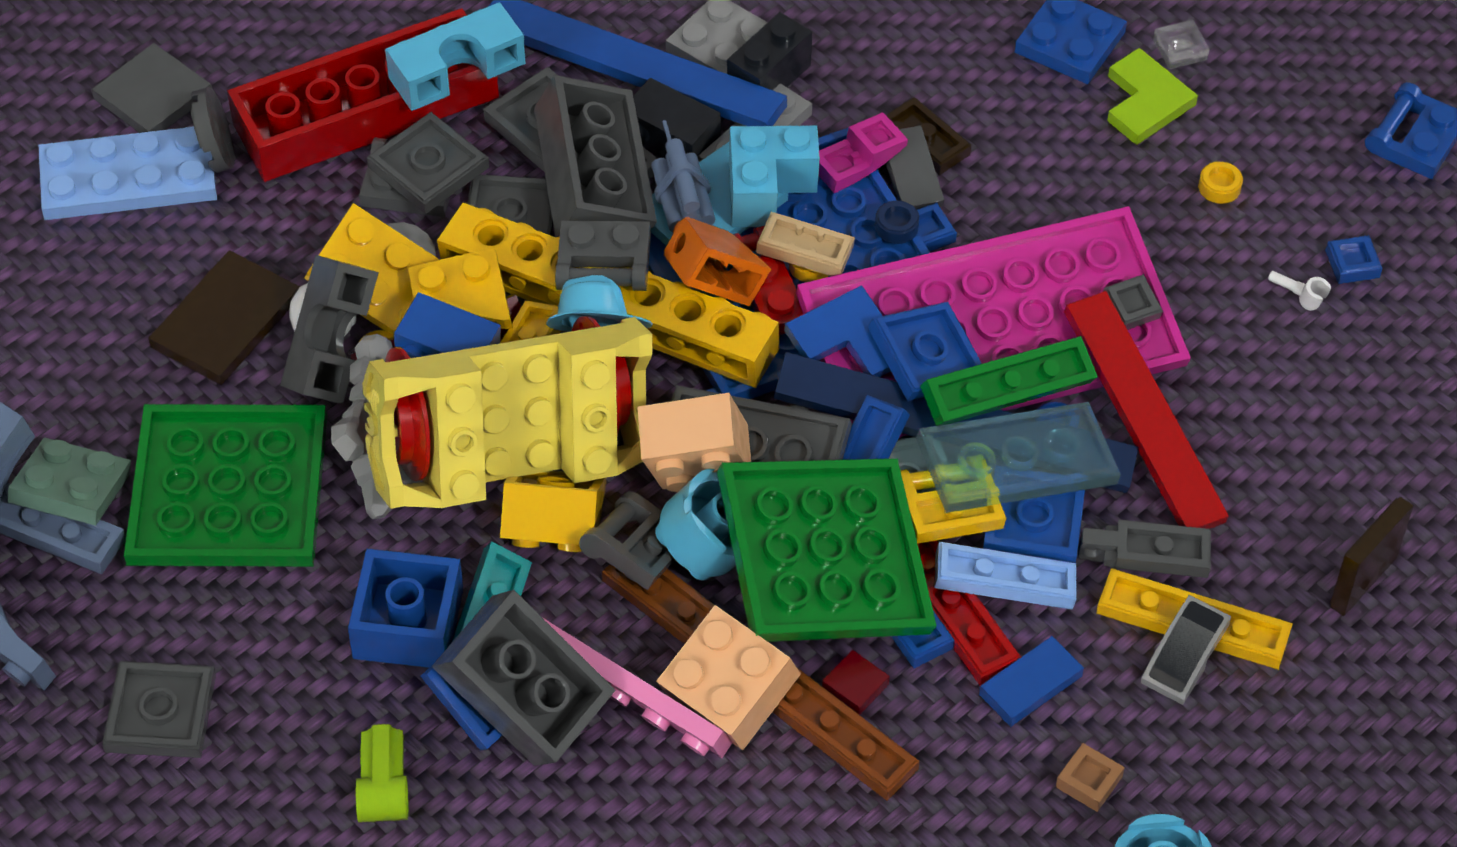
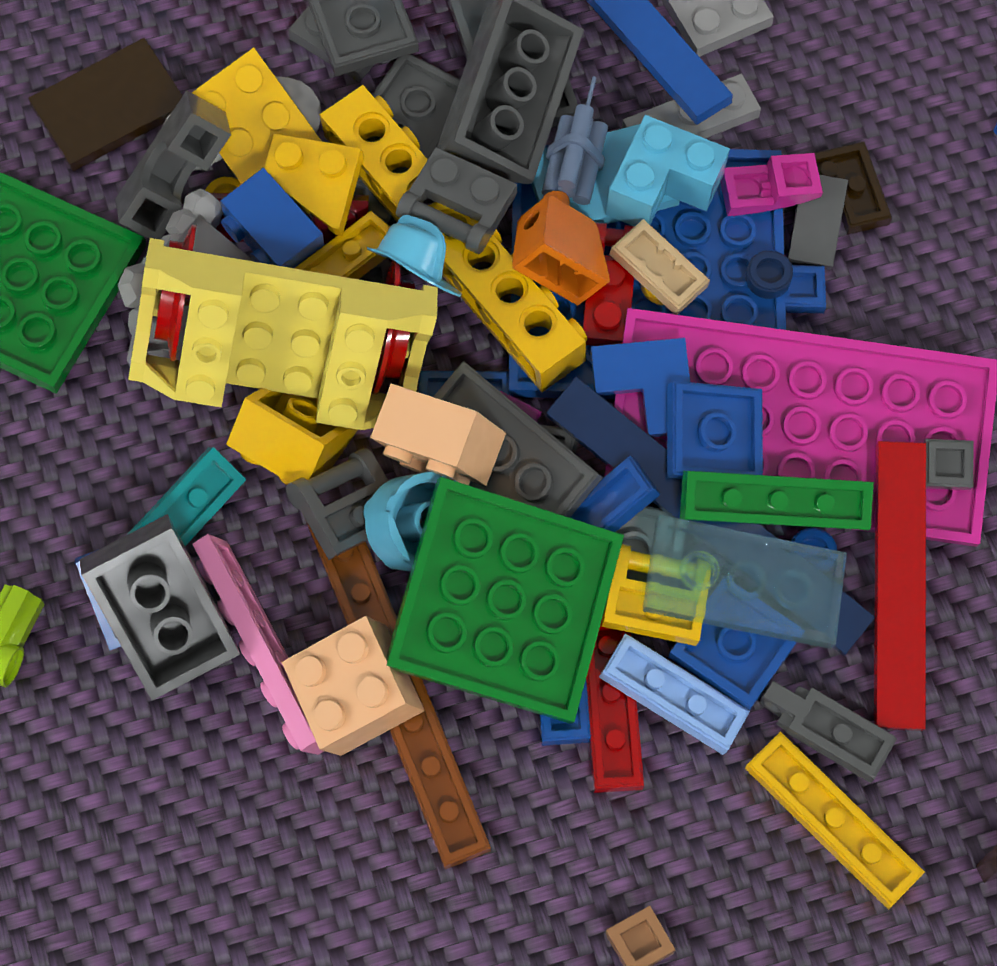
camera: 25 degrees right, 15 degrees up
(405, 608) = (103, 478): blue brick -> none
(686, 119) = (622, 79): black brick -> none
(773, 54) = (745, 43): black brick -> none
(856, 682) = (477, 737): dark red tile -> none
(1031, 681) = (642, 813): blue tile -> none
(1185, 649) = (805, 851): slope -> none

